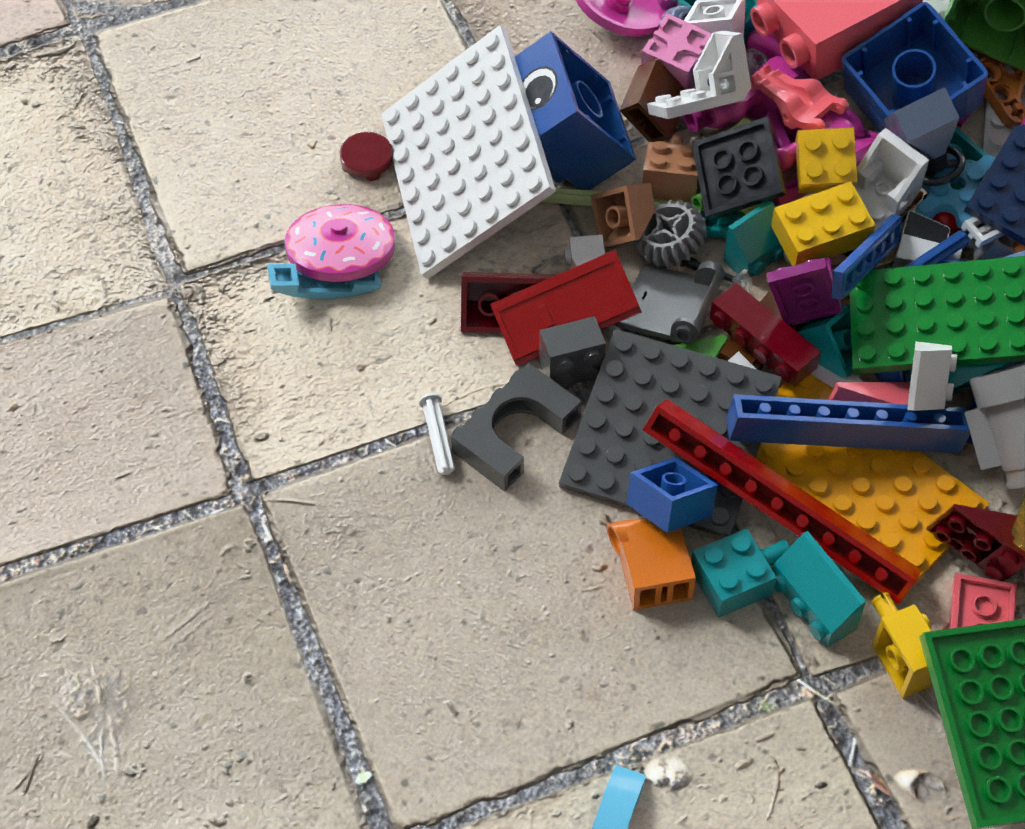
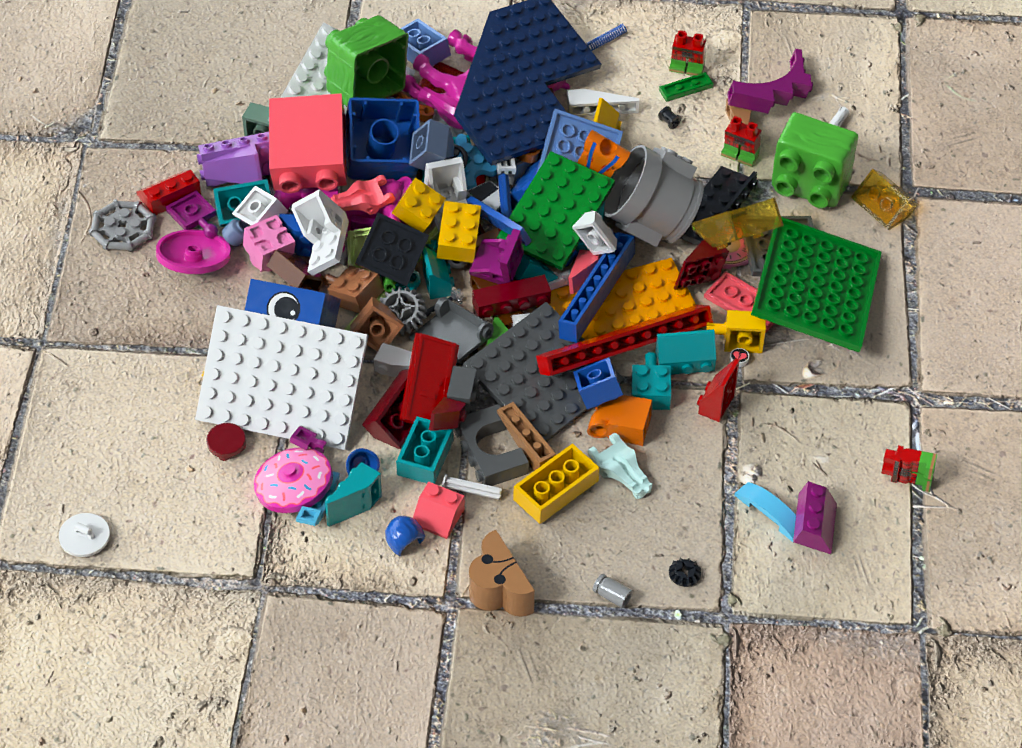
camera: 65 degrees left, 5 degrees down
(162, 91) = (84, 535): none -> white shield
(296, 519) = (498, 580): none -> medium nougat brick
(317, 386) = (403, 531): none -> blue piece
(342, 308) = (354, 495): none -> teal slope
(351, 672) = (612, 590): none -> light grey piece
(377, 412) = (439, 509): none -> coral slope
(397, 297) = (362, 455): none -> blue helmet
(402, 223) = (305, 438): none -> magenta plate
(434, 768) = (680, 577): none -> black gear
(460, 354) = (424, 452): none -> teal brick
(491, 525) = (556, 483): none -> yellow brick
(511, 344) = (447, 415): none -> dark red slope
(543, 459) = (526, 436): none -> medium nougat slope
(574, 593) = (621, 464): none -> light aqua animal
(771, 667) = (719, 392): none -> red slope
(870, 669) = (741, 354): none -> tile

